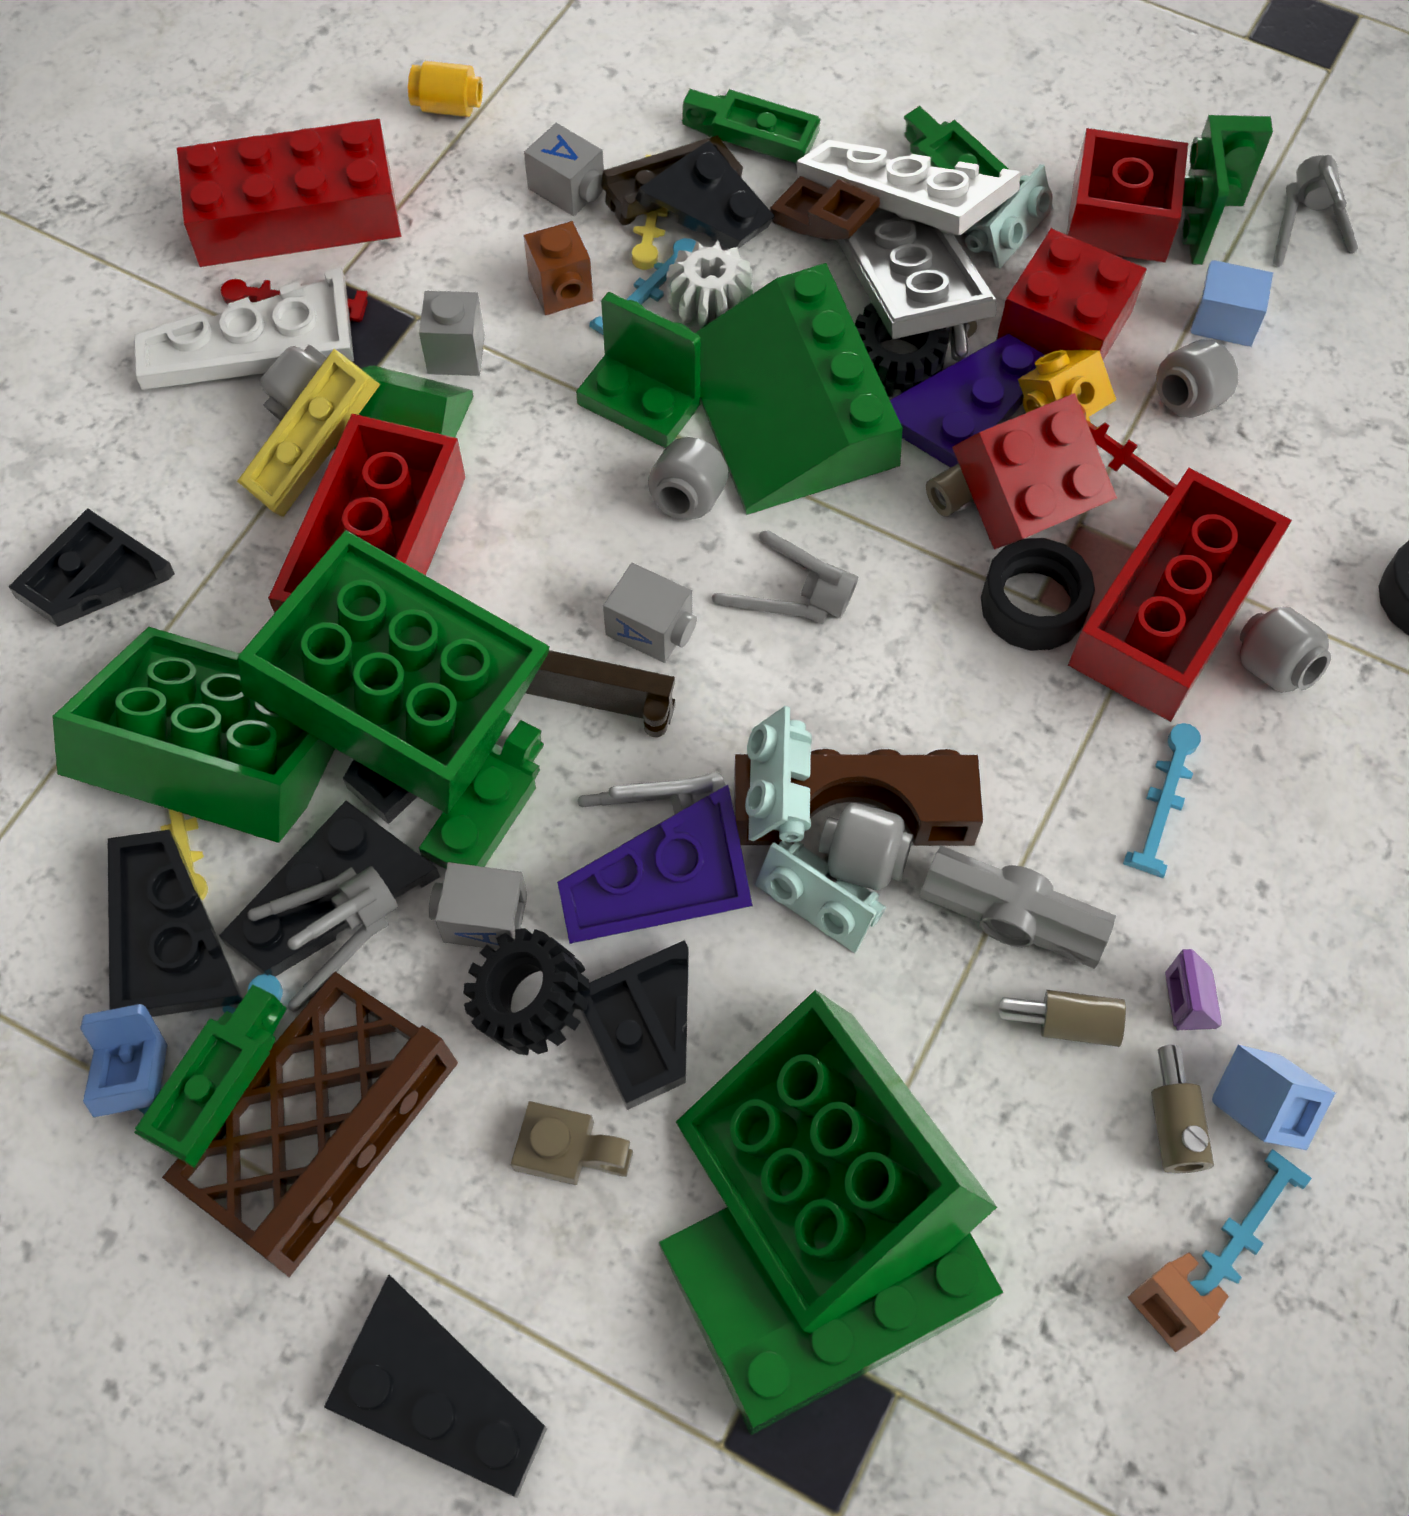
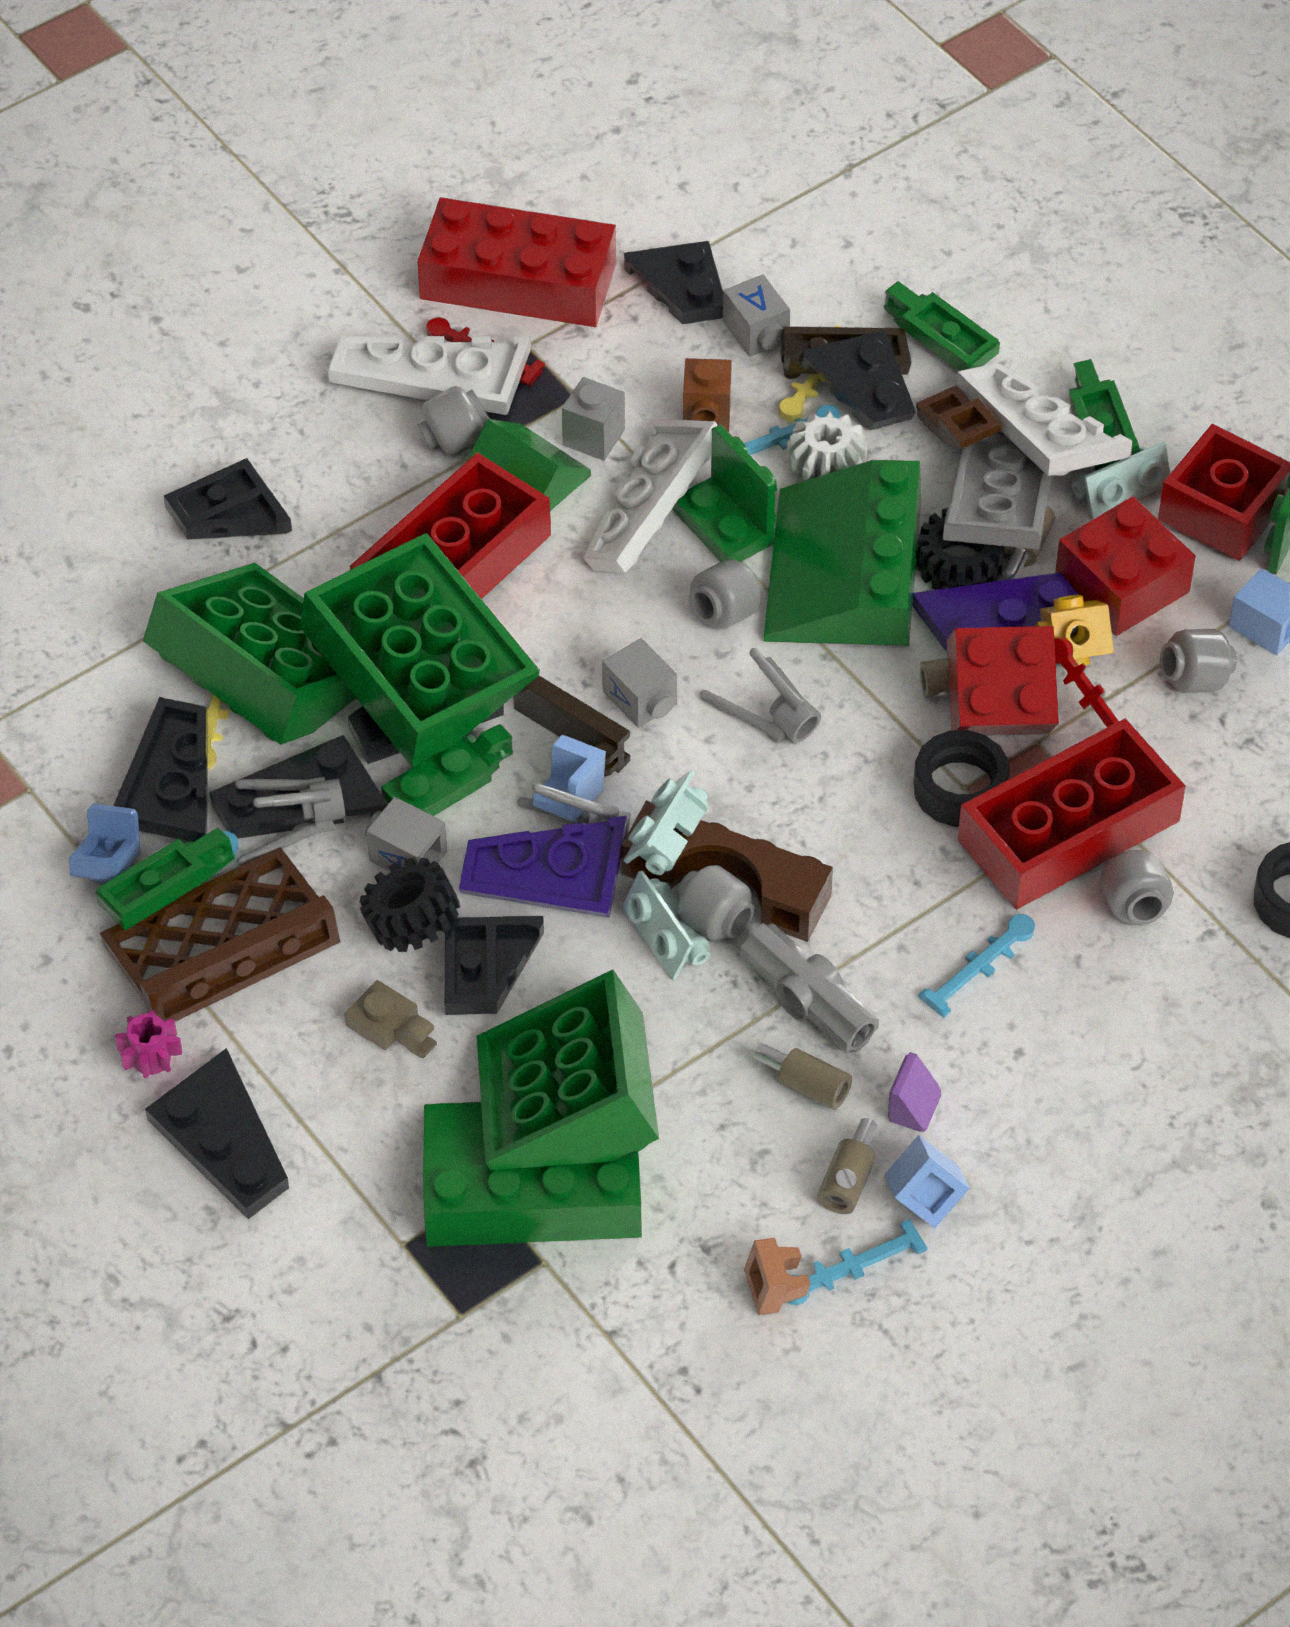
camera: 25 degrees right, 10 degrees down
(307, 1321) = (148, 1044): none -> dark pink gear
(308, 433) = (439, 456): light yellow tile -> none
(445, 88) = (690, 214): yellow brick -> none
(467, 158) = (682, 279): none -> black wing
(553, 383) = (658, 480): none -> white wing
(630, 753) = (575, 770): none -> light blue panel

